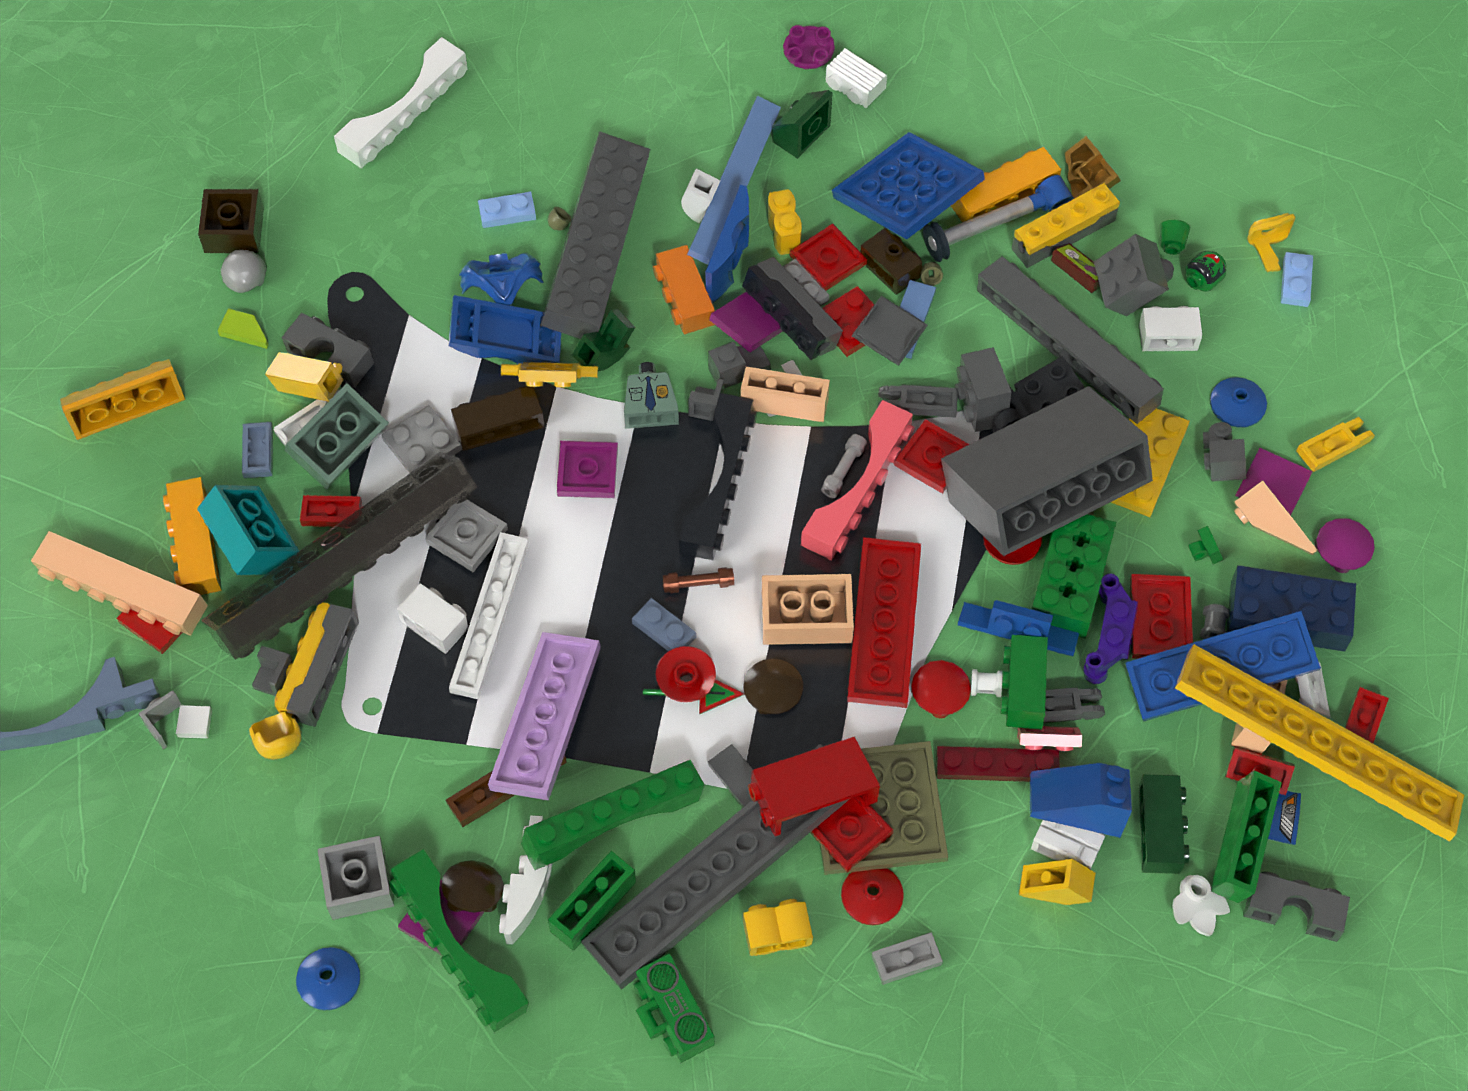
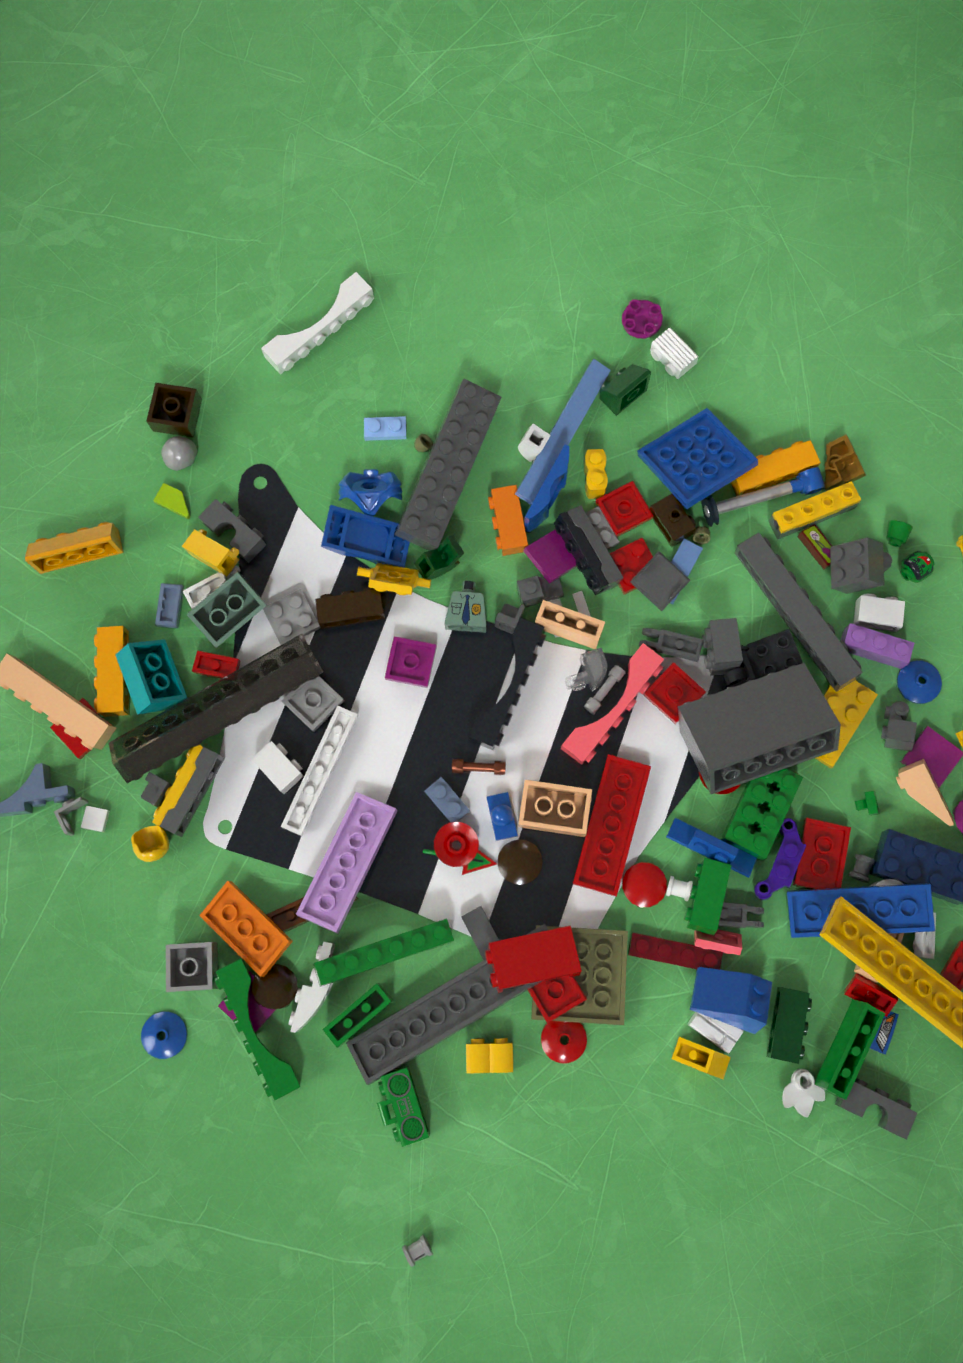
camera: 15 degrees right, 15 degrees up
(422, 818) = (246, 928): none -> orange plate
(739, 635) = (502, 816): none -> blue tile
(824, 446) = (594, 672): none -> clear brick
(907, 958) = (579, 1096): light grey plate -> none
(1178, 364) = (877, 646): none -> medium lavender brick

